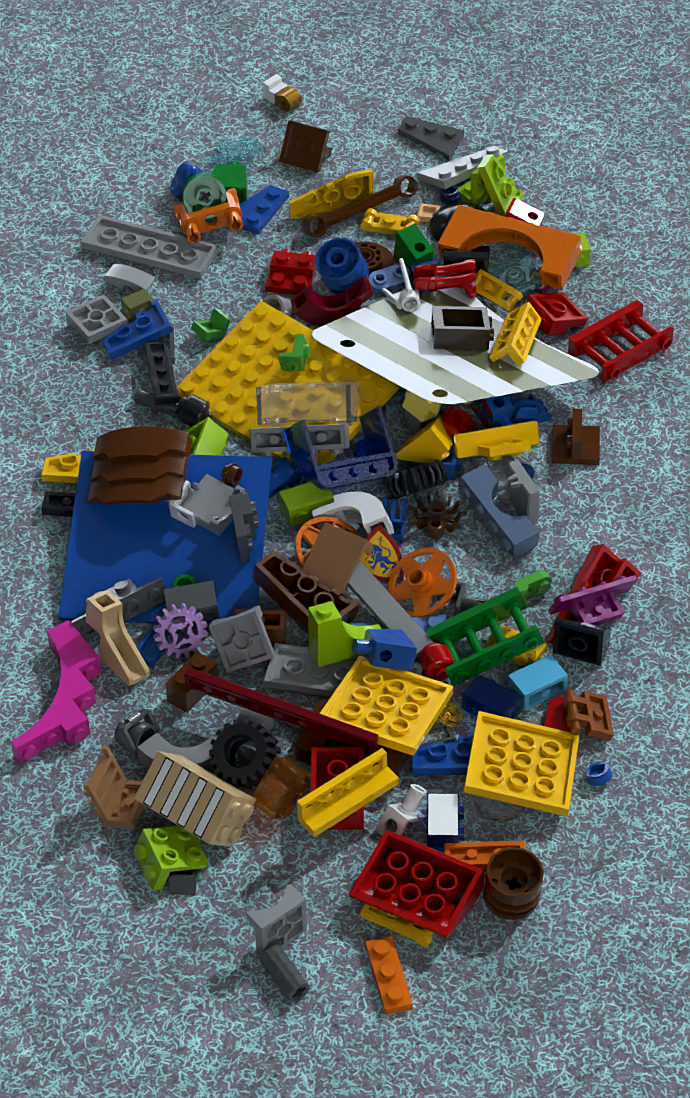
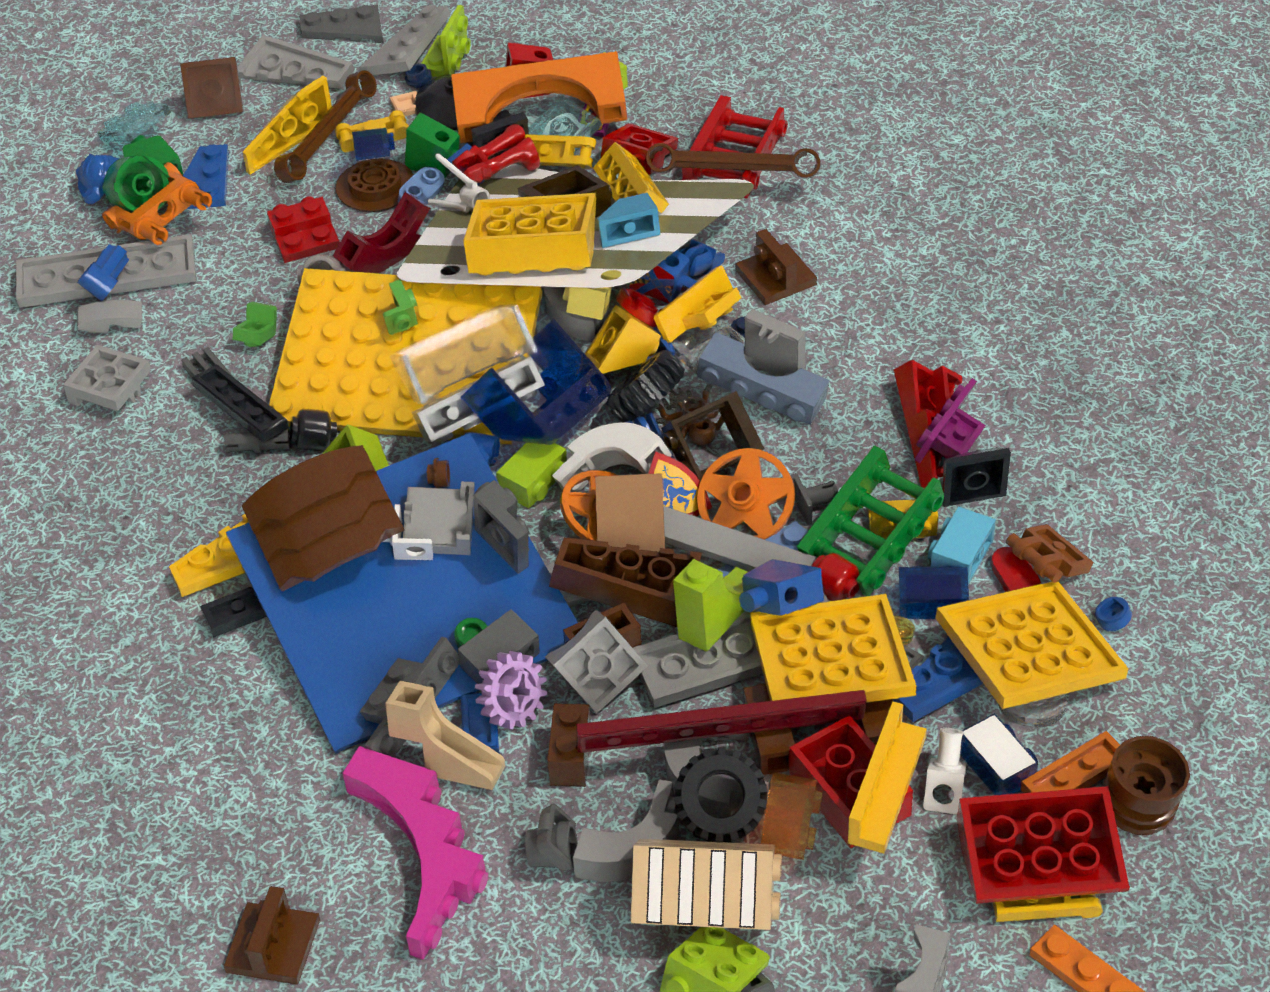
camera: 30 degrees left, 0 degrees up
(113, 793) = (596, 934): medium nougat plate -> none
(135, 303) = (149, 340): olive brick -> none
(138, 249) = (102, 274): none -> blue piece
(145, 328) = (175, 365): blue wing -> none
(281, 94) = (135, 47): leg -> none
(340, 264) = (365, 193): blue wheel -> none
(373, 150) = (292, 64): none -> light grey wing
(375, 232) = (373, 143): none -> clear blue brick
(408, 341) = (531, 234): none -> yellow slope
(455, 529) = (736, 420): none -> dark brown window
(482, 361) = (629, 220): none -> dark azure slope
(497, 184) = (473, 39): lime wing -> none
(533, 584) = (863, 442): bright green plate -> none
(603, 351) = (733, 160): none -> reddish brown piece

